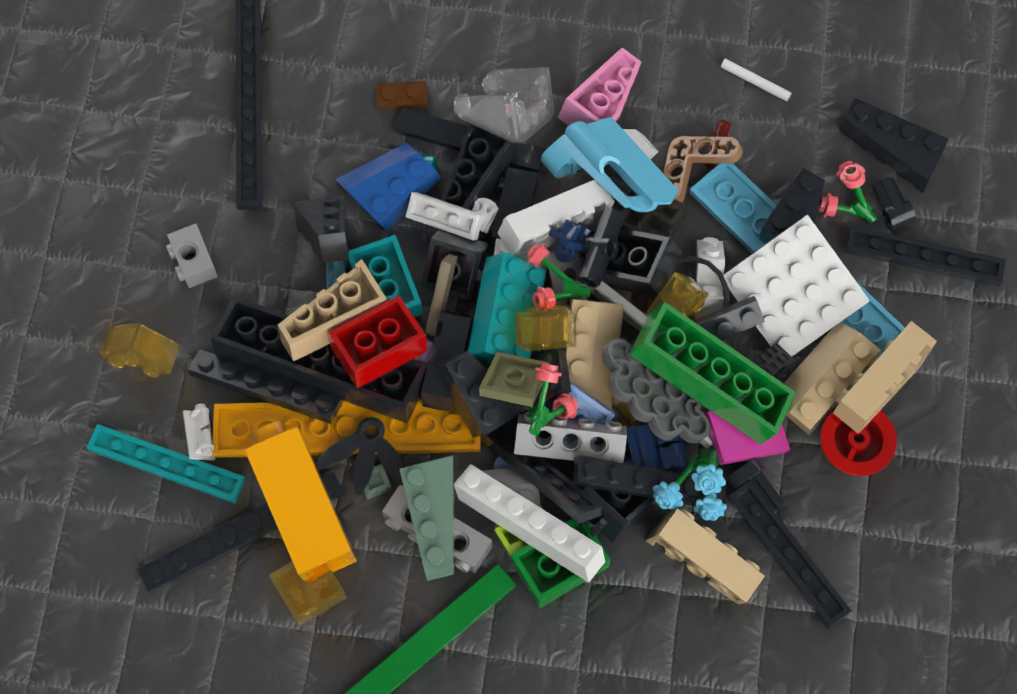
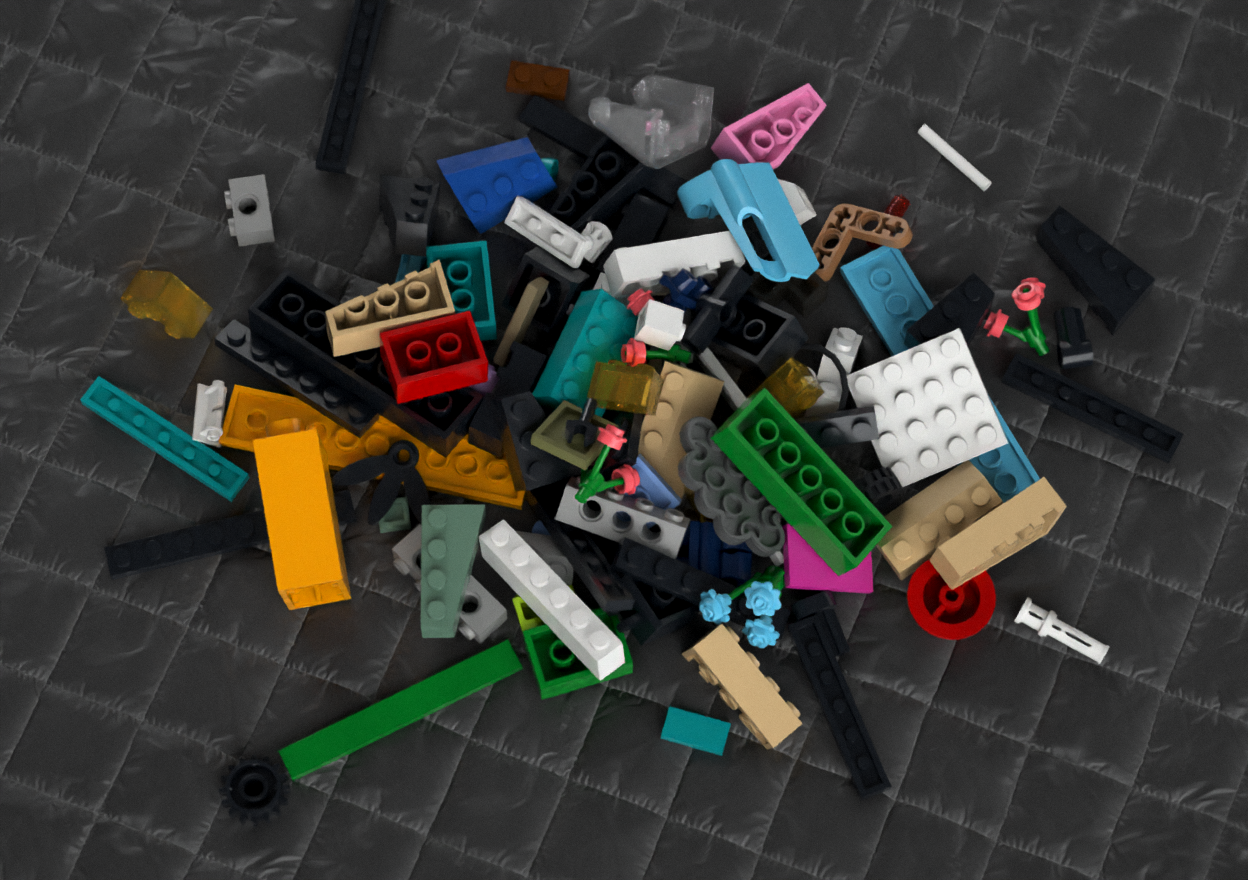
camera: 10 degrees right, 0 degrees up
(305, 599) = (285, 626): clear yellow brick -> none
(520, 368) = (583, 425): none -> black bar
(560, 270) = (660, 325): none -> white brick
(675, 603) = (695, 731): none -> teal tile
(939, 442) = (1044, 627): none -> white pin

